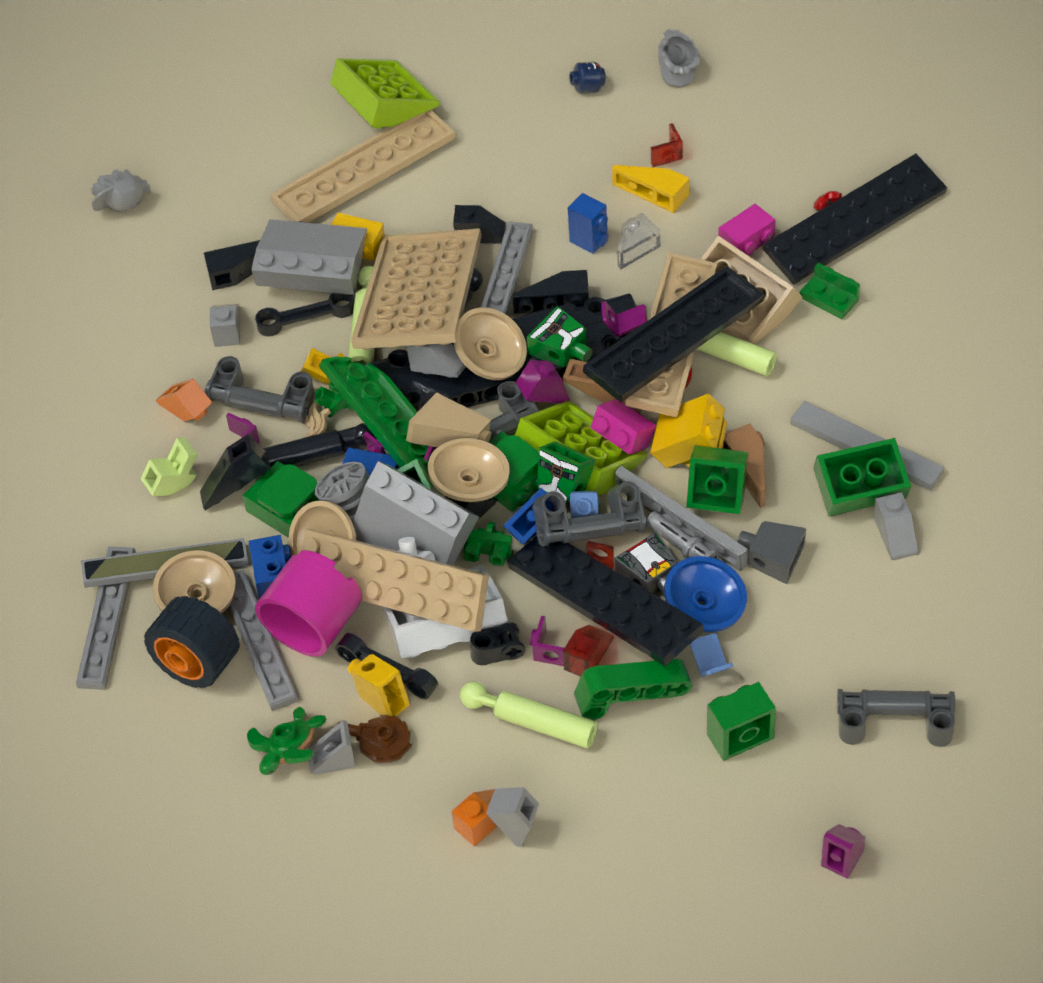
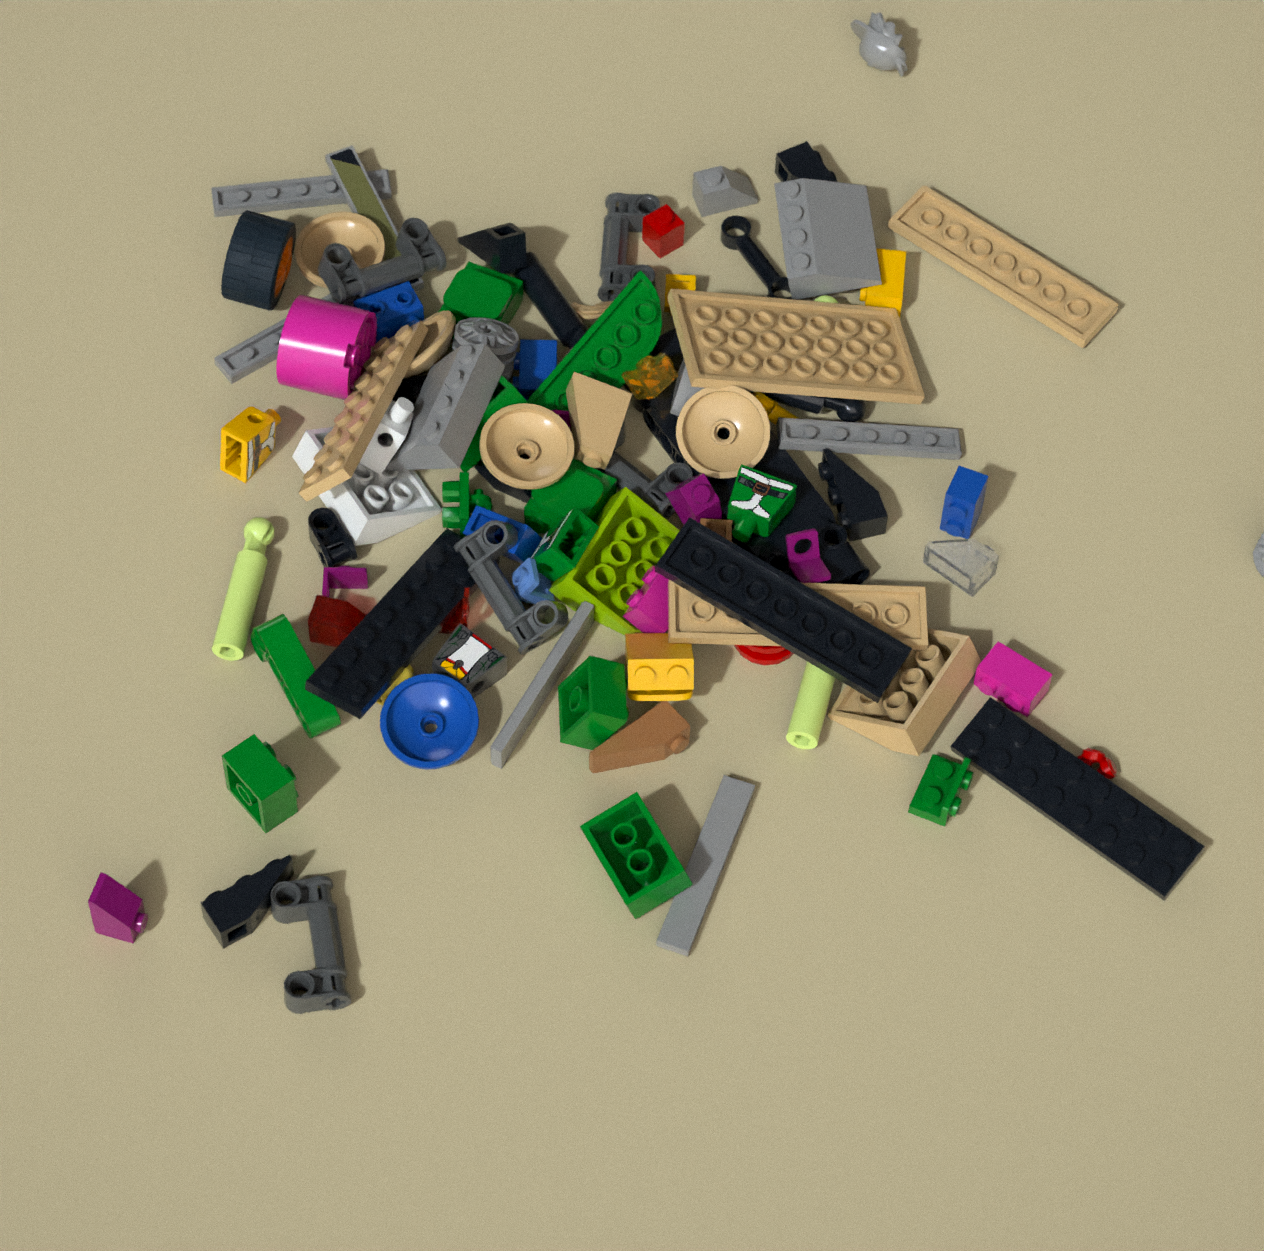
camera: 70 degrees right, 5 degrees up
(173, 473) = (492, 195): yellowish green brick -> none
(185, 400) = (595, 182): orange slope -> none
(230, 579) = (418, 255): none -> dark grey piece
(242, 427) = (564, 253): magenta bracket -> none
(254, 364) = (663, 231): none -> red brick
(287, 741) = (166, 378): green animal -> none
(333, 751) = (167, 427): light grey slope -> none
(381, 90) = (1127, 253): lime slope -> none
(382, 738) = (191, 463): reddish brown piece -> none
(413, 378) = (650, 376): none -> clear yellow brick
(418, 681) = (267, 475): black piece -> none
(471, 817) = (111, 570): orange slope -> none
(477, 217) = (940, 394): black slope -> none
(513, 812) = (98, 589): light grey slope -> none
(587, 77) = (1226, 460): dark blue head -> none
(653, 184) = (1063, 570): yellow slope -> none
(668, 151) = (1127, 576): clear red bracket -> none
(689, 545) = (504, 702): light grey pin -> none
(709, 655) = (352, 748): medium blue bracket -> none
(774, 549) = (517, 787): dark grey torso -> none
(852, 757) = (242, 906): none -> black slope
(895, 526) = (581, 908): light grey slope -> none

